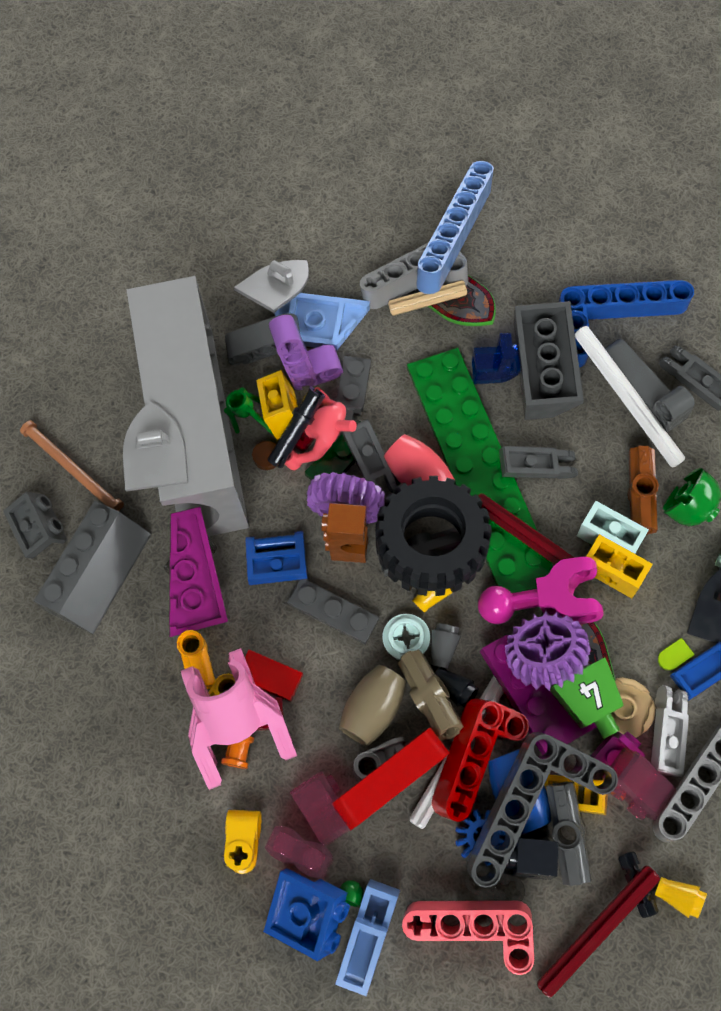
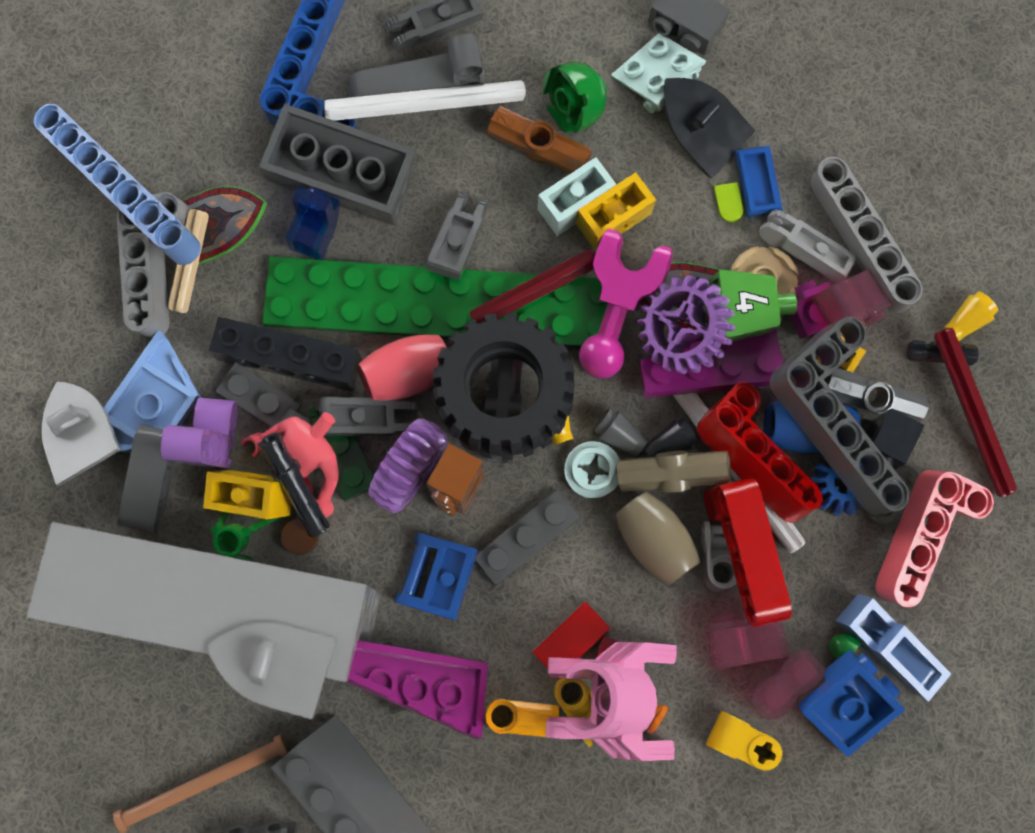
camera: 75 degrees left, 10 degrees up
(390, 386) = (285, 354): none -> black brick

